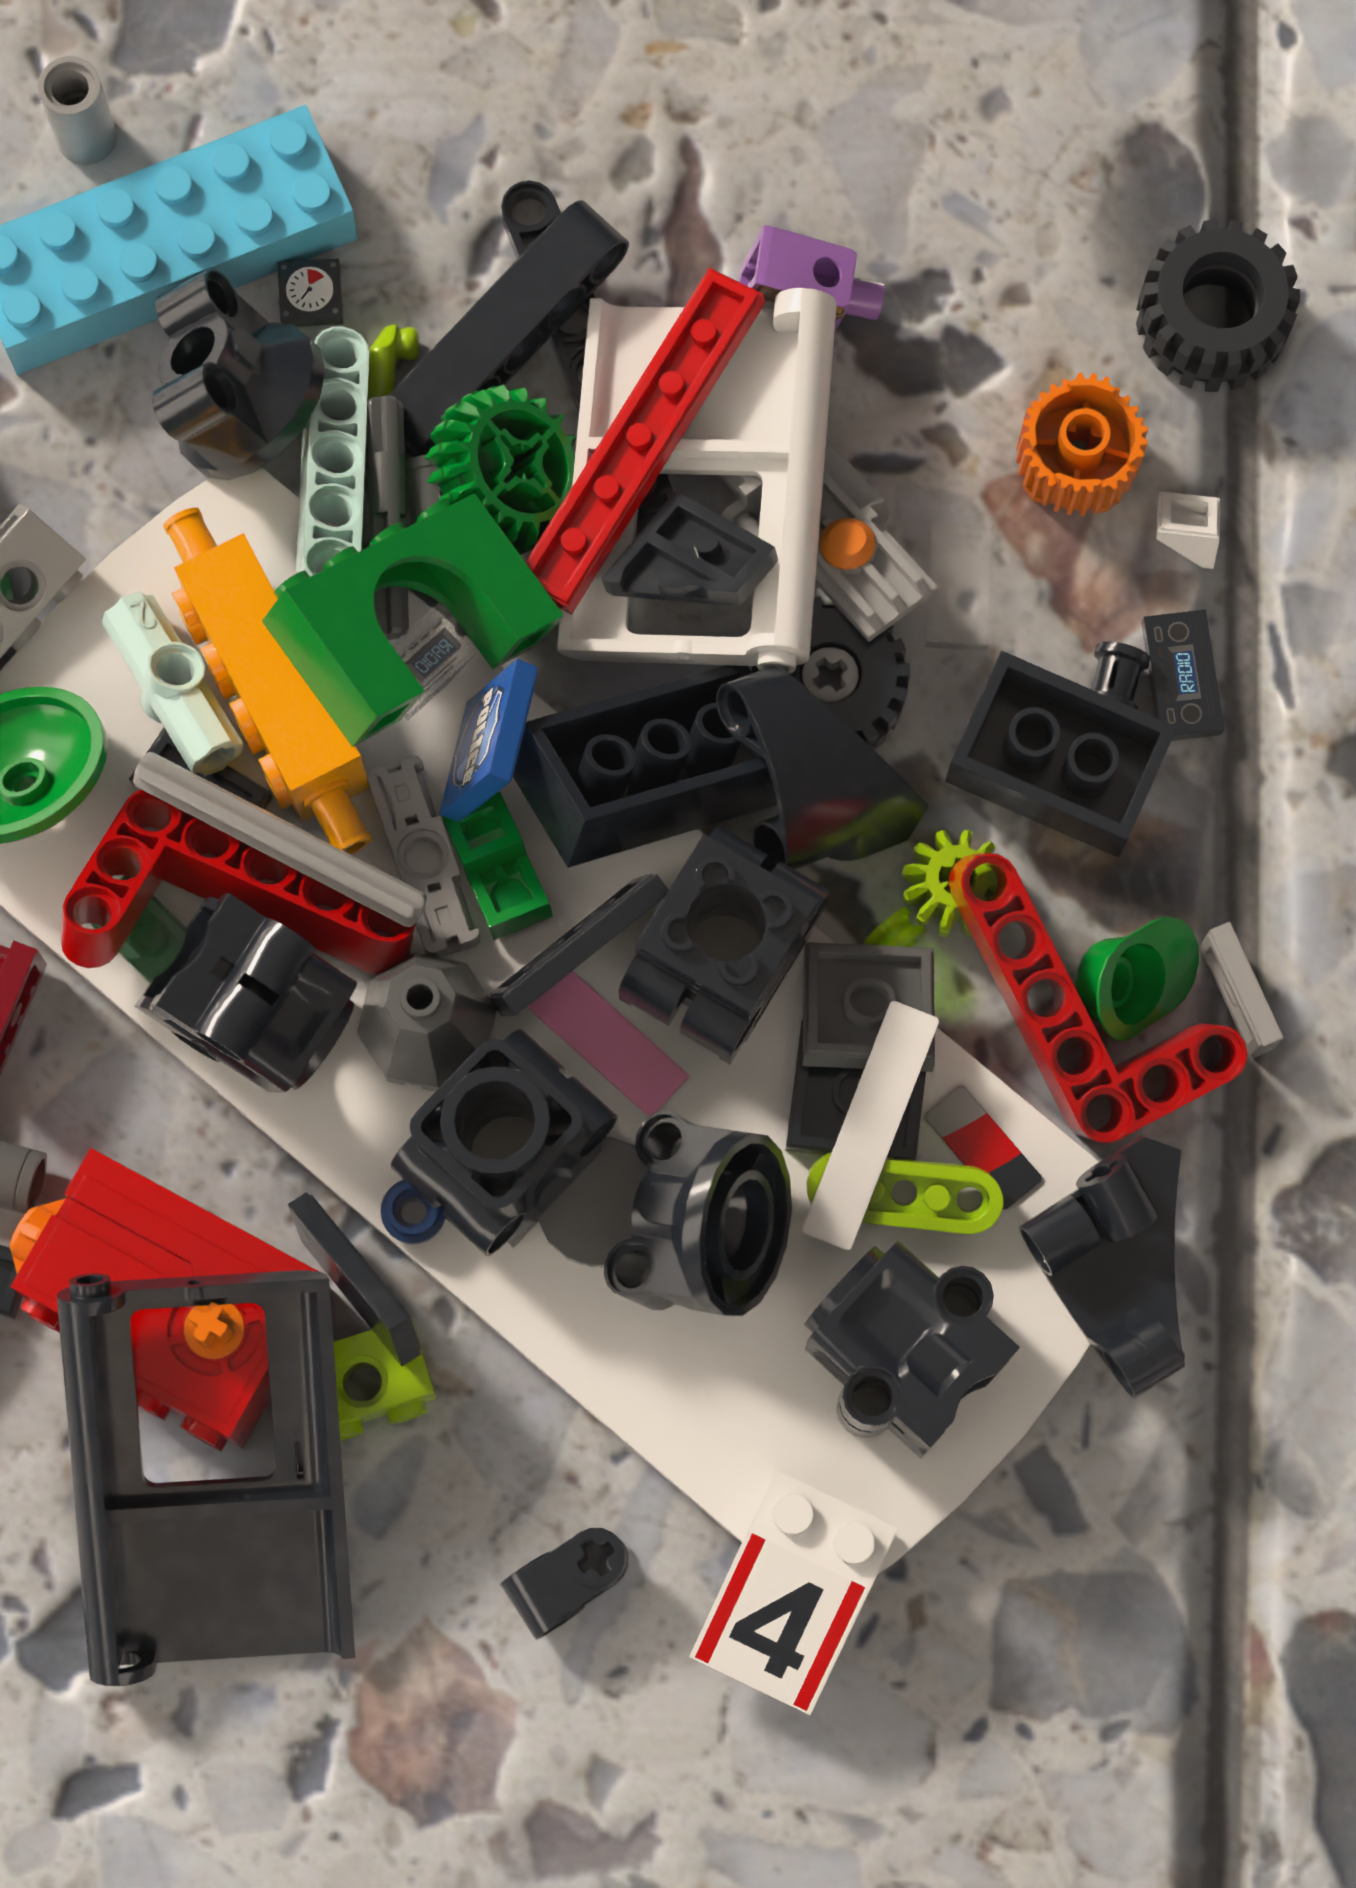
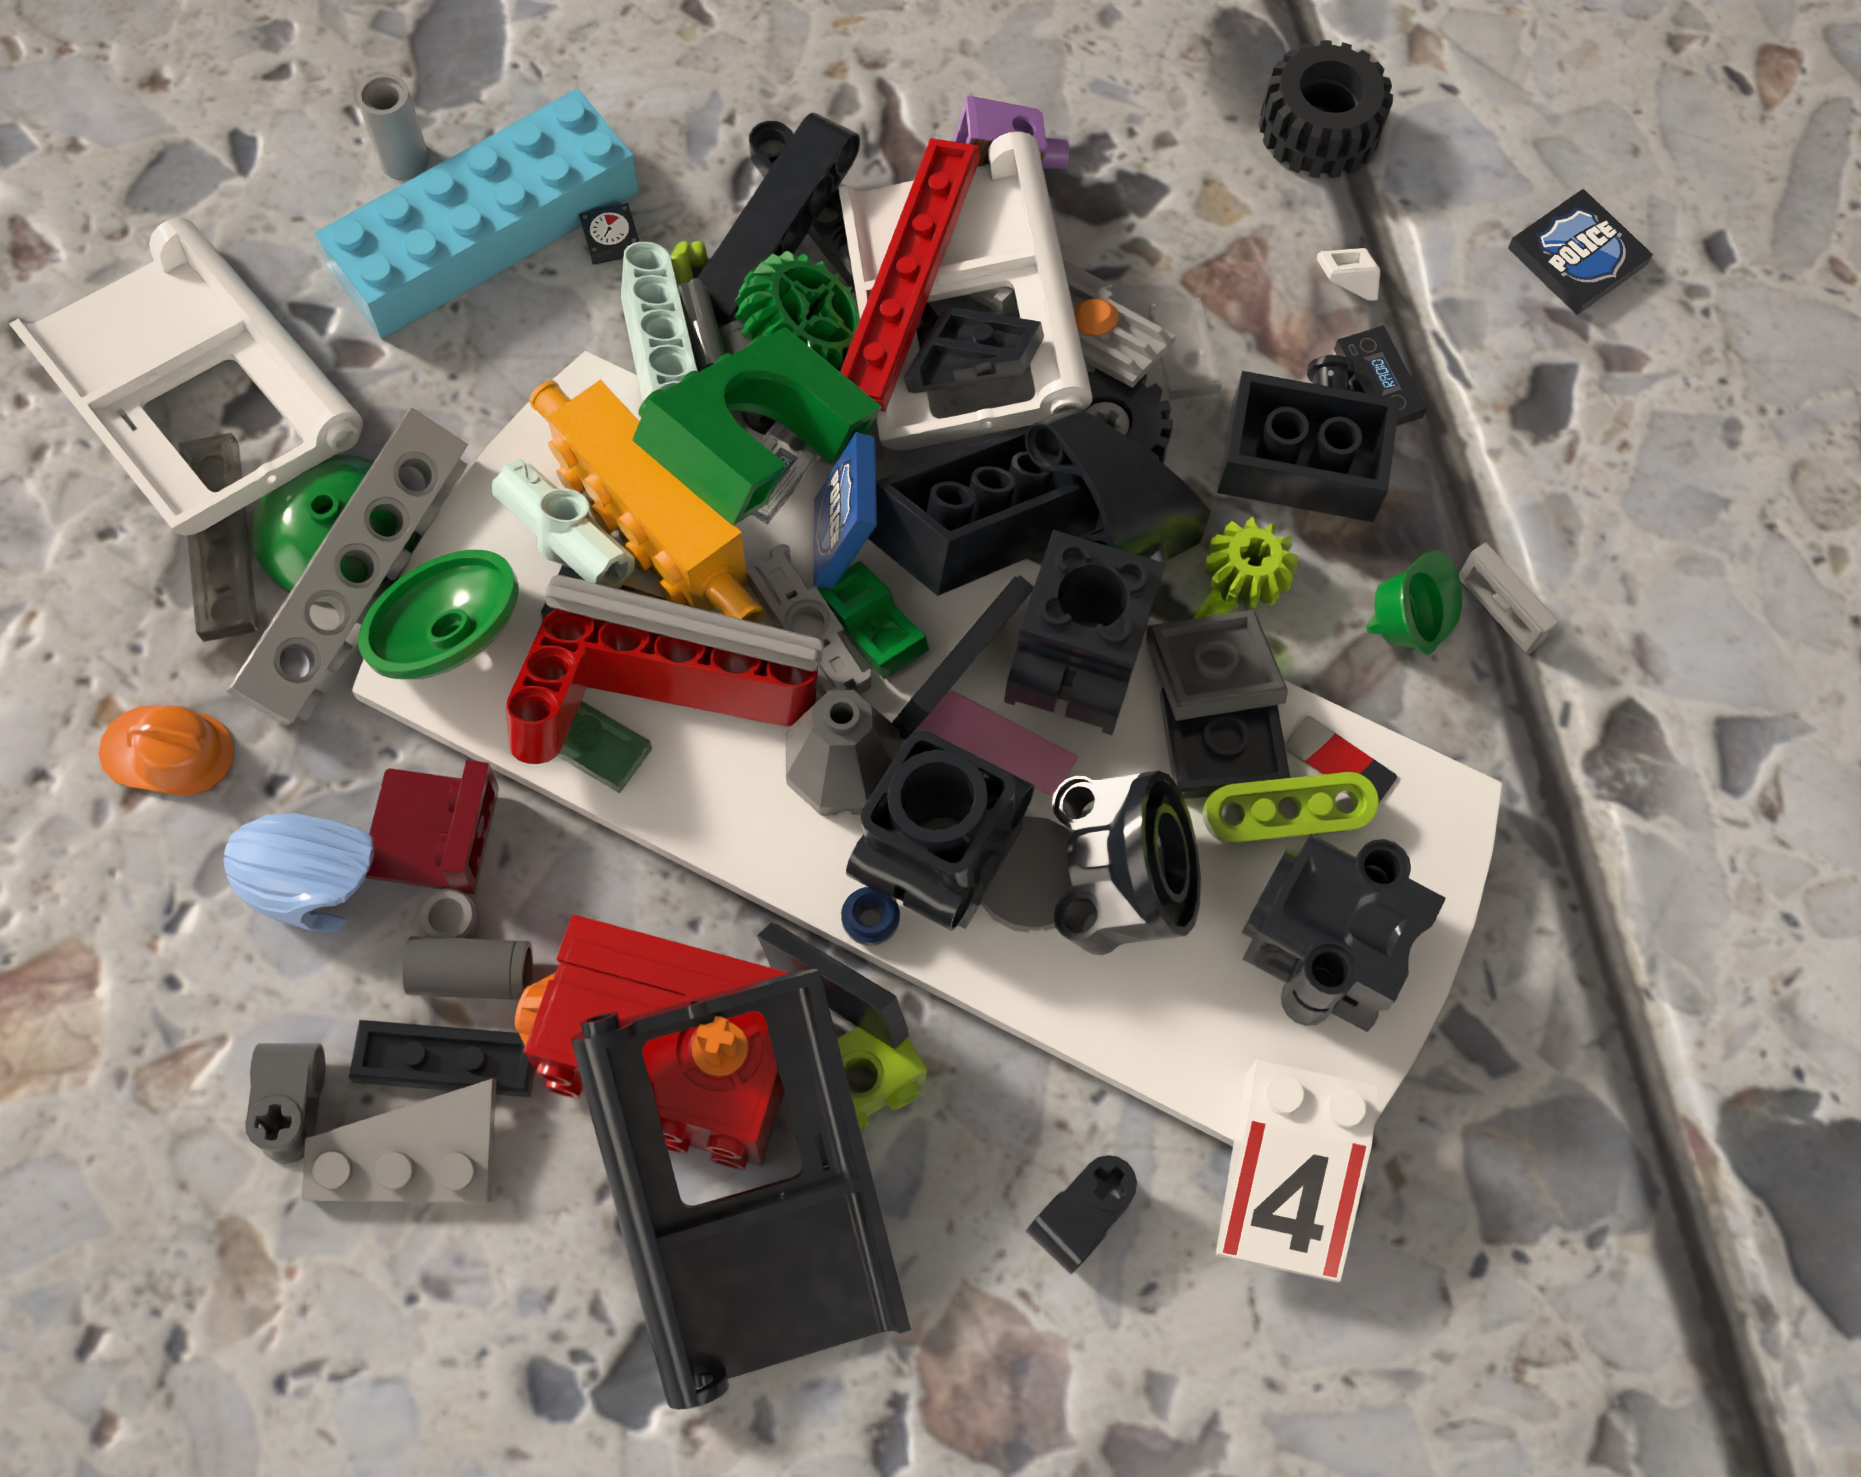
camera: 15 degrees left, 10 degrees down
(231, 379) = (561, 294): black piece -> none
(251, 996) = (689, 753): black piece -> none
(870, 1125) = (1249, 755): white sticker -> none
(1069, 1018) = (1381, 639): red beam -> none
(1072, 476) = (1252, 223): orange brick -> none
(1114, 1260) = (1480, 832): black panel -> none

